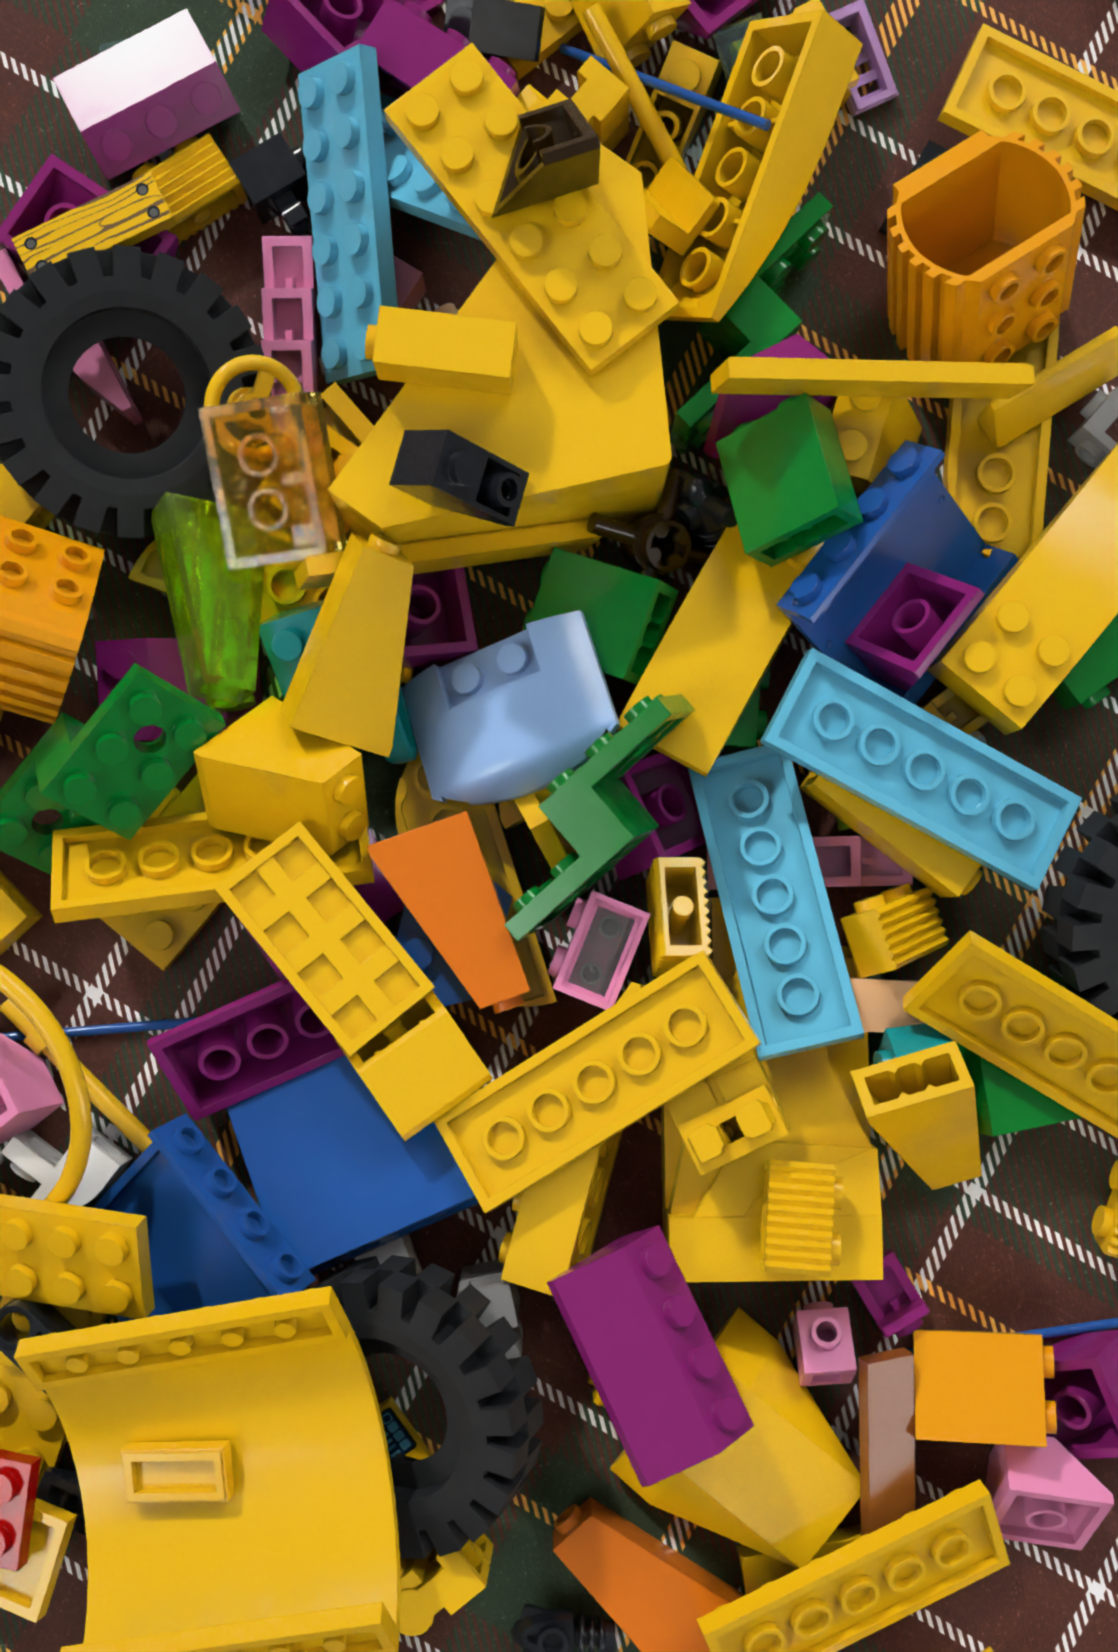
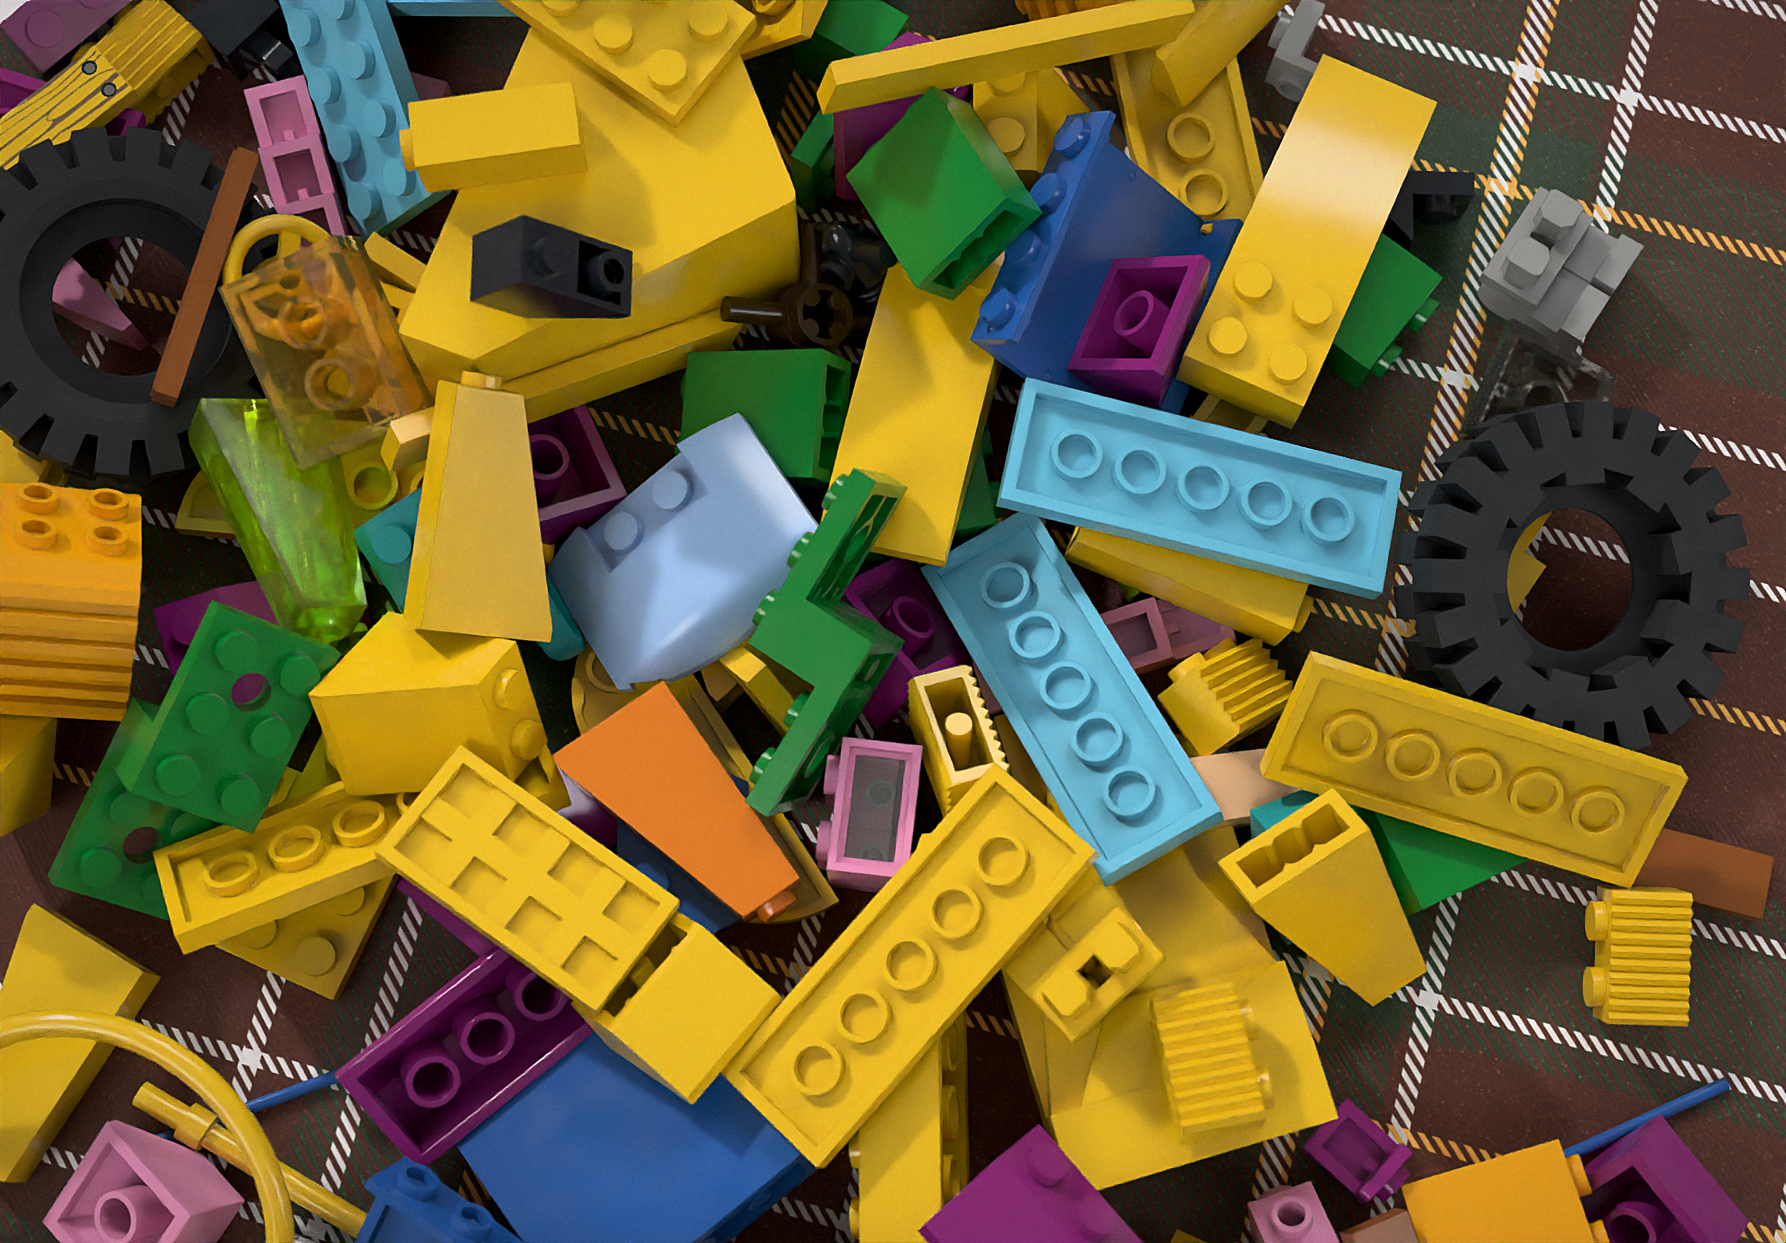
camera: 15 degrees left, 10 degrees down
(192, 390) = (204, 276): none -> dark orange tile

